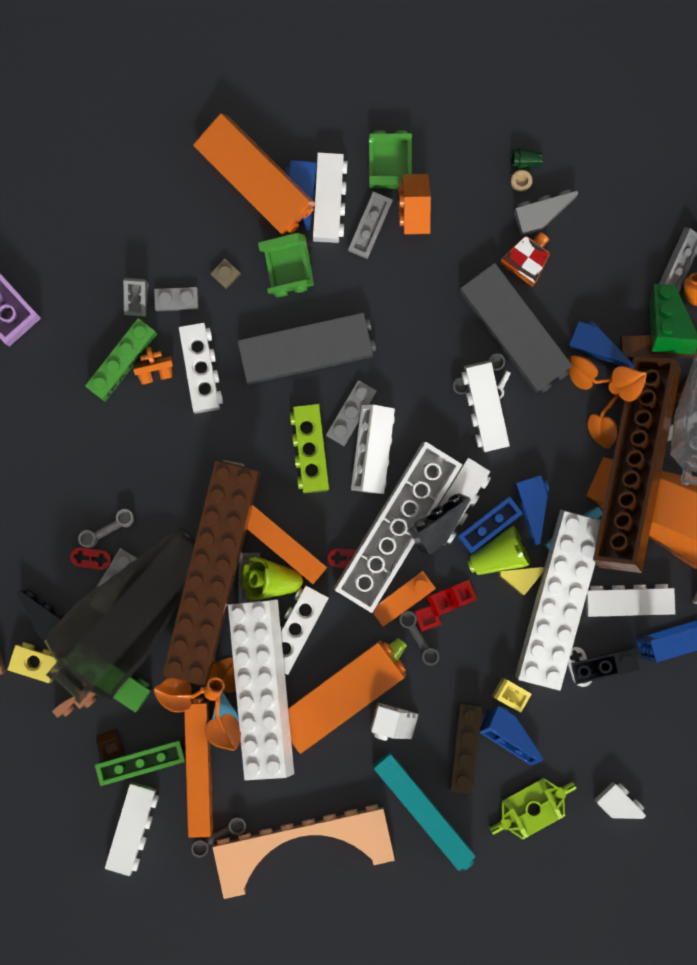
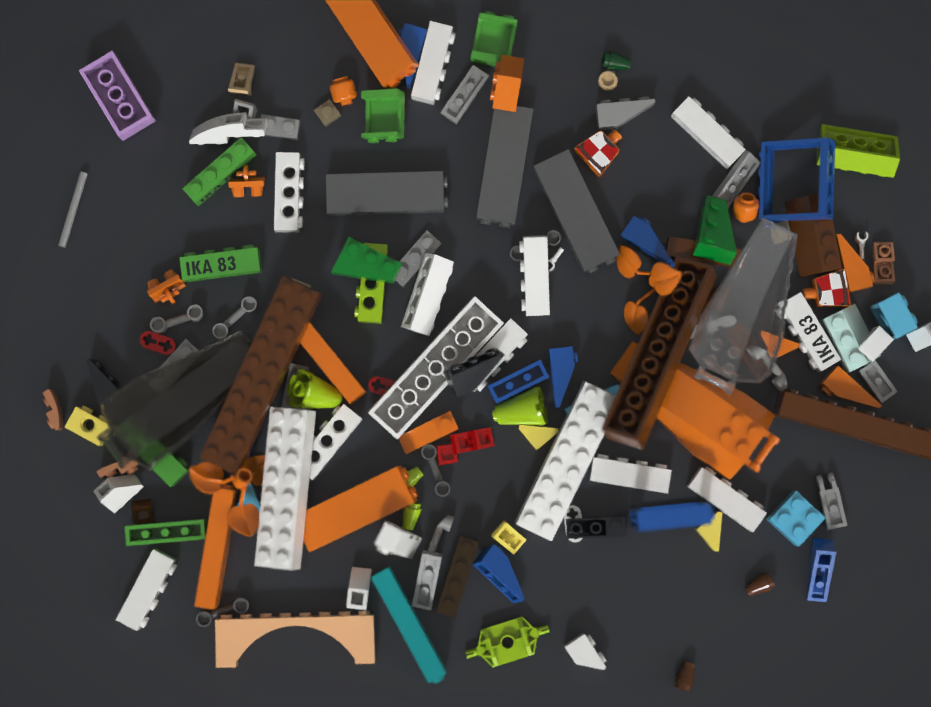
camera: 15 degrees right, 0 degrees up
(79, 728) = (117, 491): none -> white slope
(89, 498) = (167, 289): none -> orange hips
(114, 312) = (230, 125): none -> white slope
(125, 255) = (241, 79): none -> tan slope
(142, 460) = (220, 264): none -> bright green brick
(180, 498) = (220, 330): none -> light grey bar
(238, 246) = (343, 90): none -> orange head
(300, 428) = (365, 263): none -> green wedge
(361, 782) = (359, 588): none -> white slope
(402, 692) = (411, 515): none -> lime cone
(428, 295) = (504, 166): none -> dark grey brick
(433, 759) = (427, 580): none -> light grey plate
(440, 694) = (444, 524): none -> light grey bar
(641, 216) = (708, 132): none -> white brick

